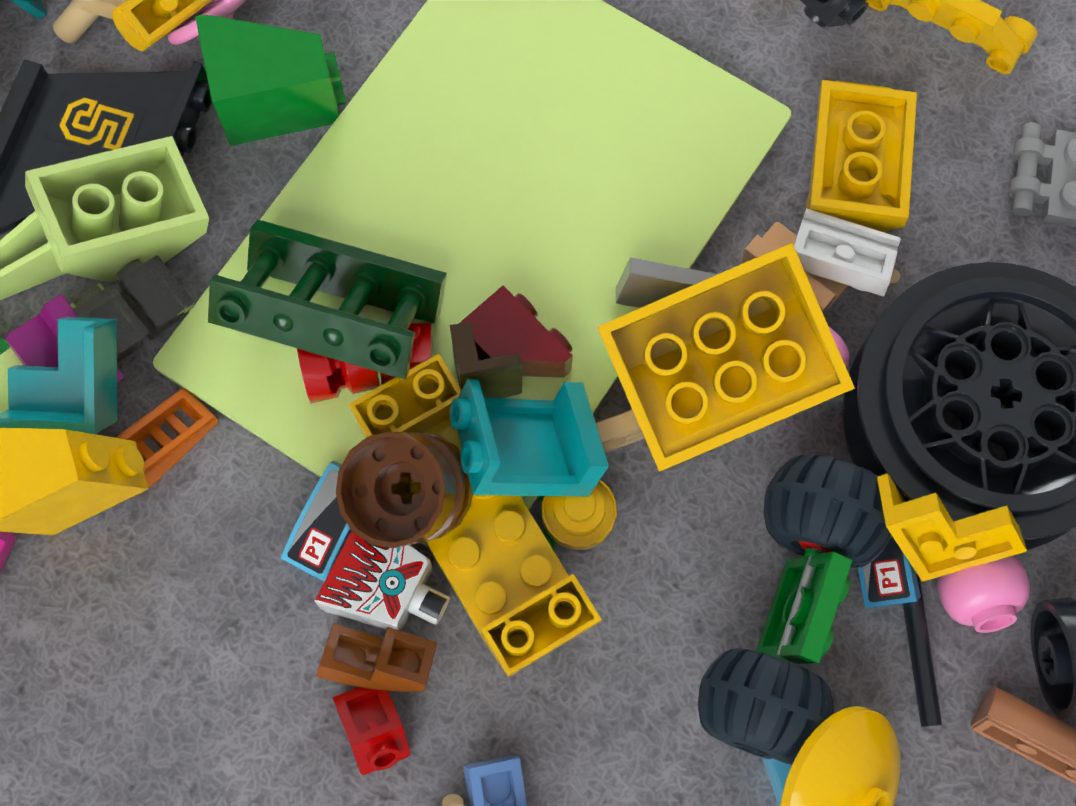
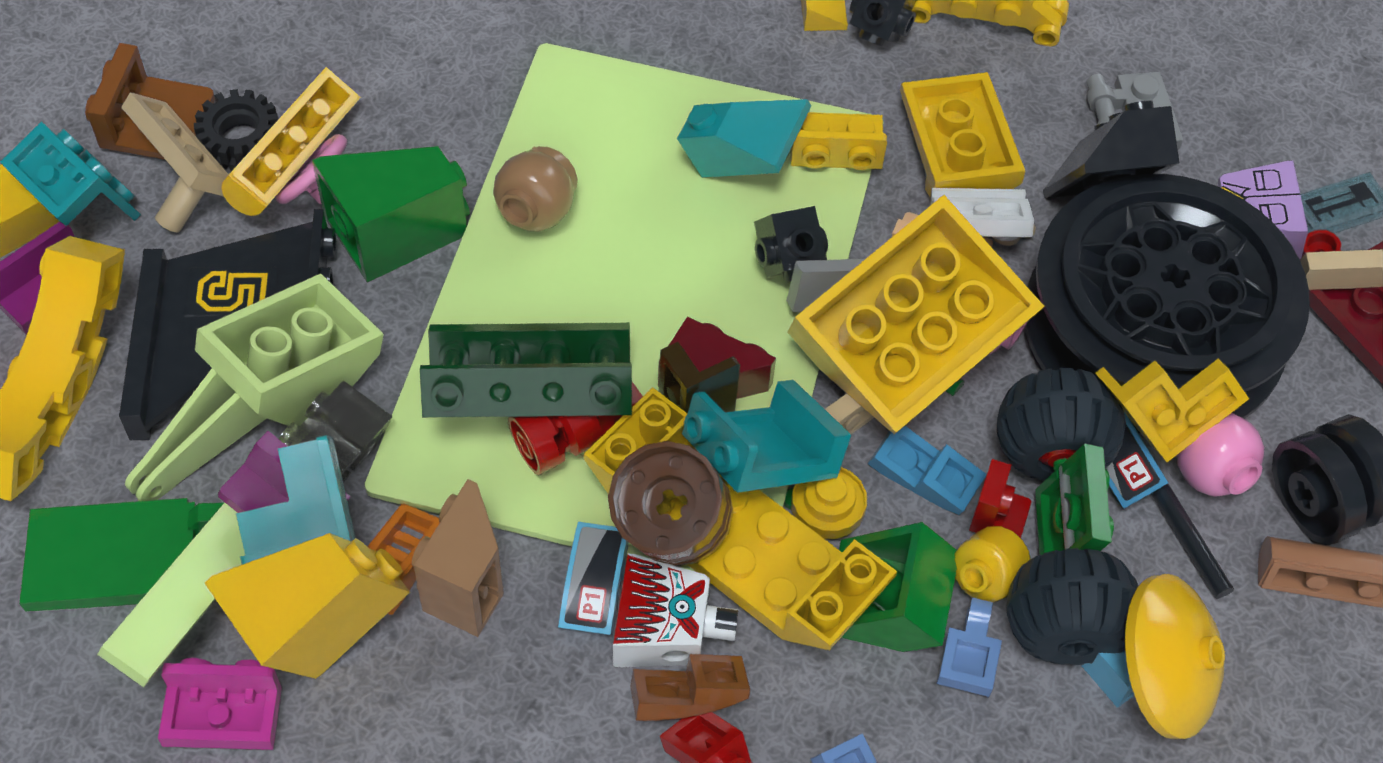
camera: 20 degrees left, 15 degrees down
(206, 471) = (460, 564): none -> medium nougat slope
(408, 101) = (535, 188): none -> medium nougat piece
(632, 624) = (917, 601): none -> green slope
(634, 97) = (742, 136): none -> teal slope
(635, 216) = (788, 239): none -> black brick
(652, 712) = (969, 655): none -> medium blue plate
(690, 508) = (931, 473): none -> dark azure slope
(708, 627) = (990, 562): none -> yellow head
(732, 125) = (840, 141): none -> yellow bracket
(742, 572) = (999, 503): none -> red bracket
(1008, 230) = (1129, 144): none -> black slope

